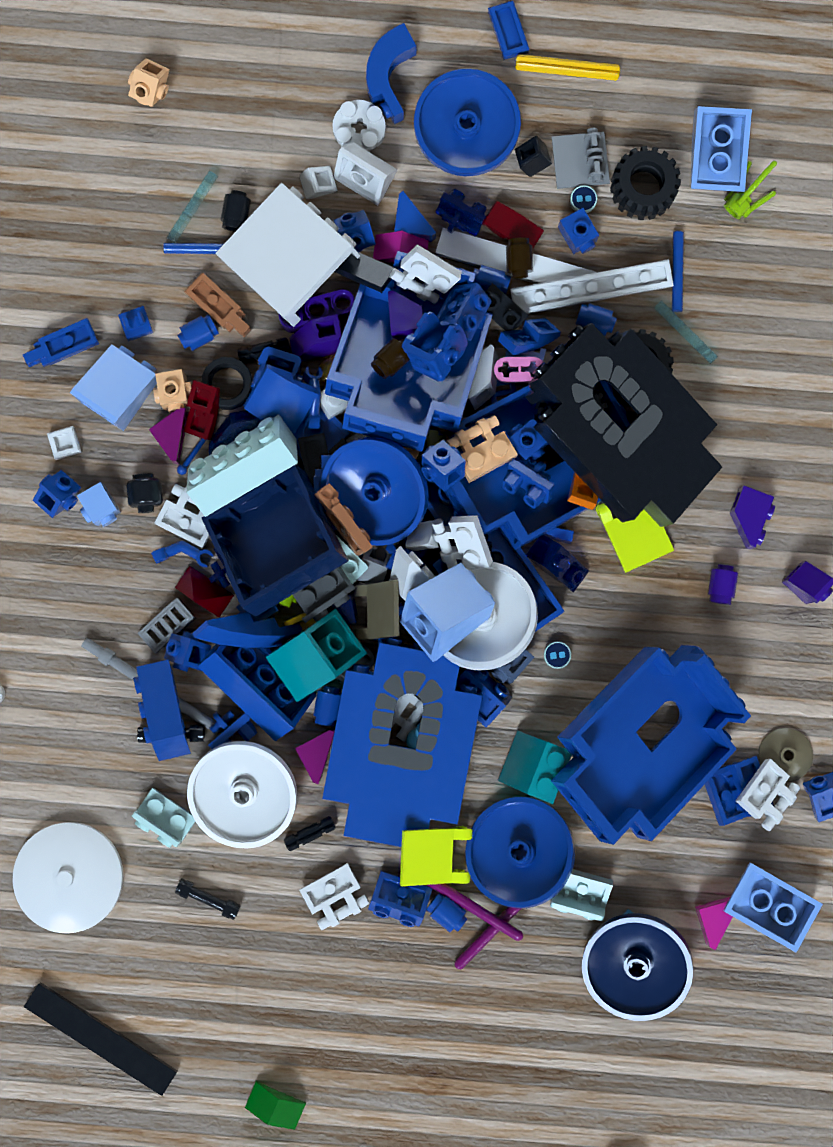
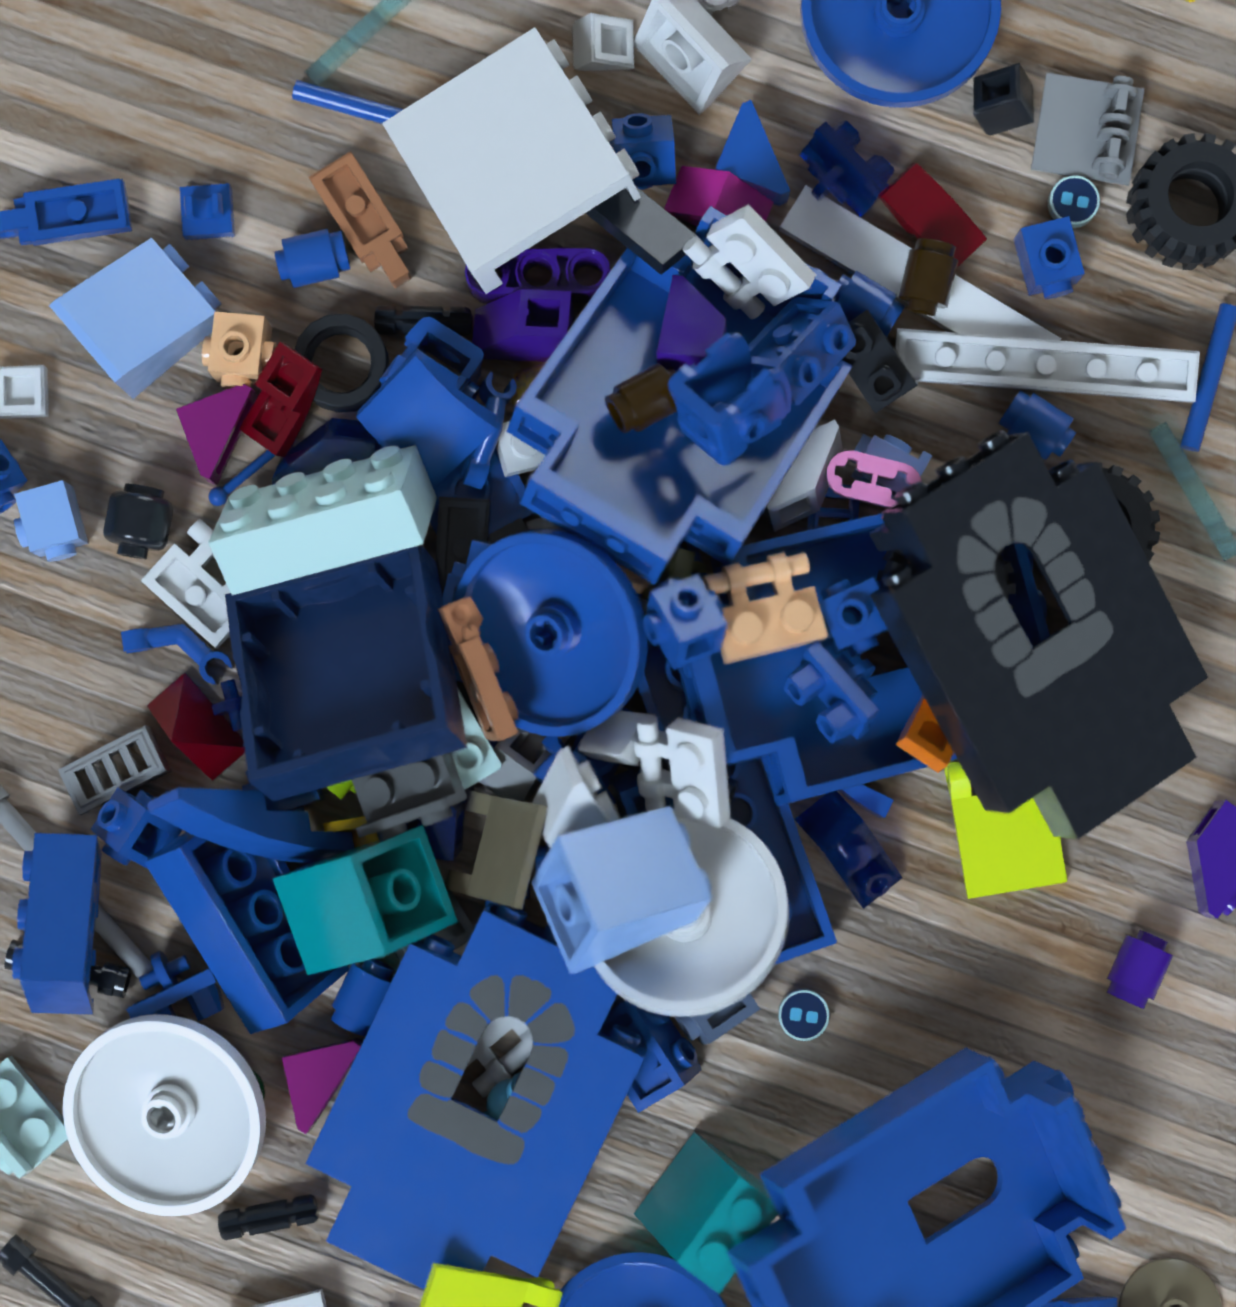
camera: 20 degrees right, 0 degrees up
(235, 210) = (439, 55): black brick -> none
(532, 336) = (913, 426): blue slope -> none

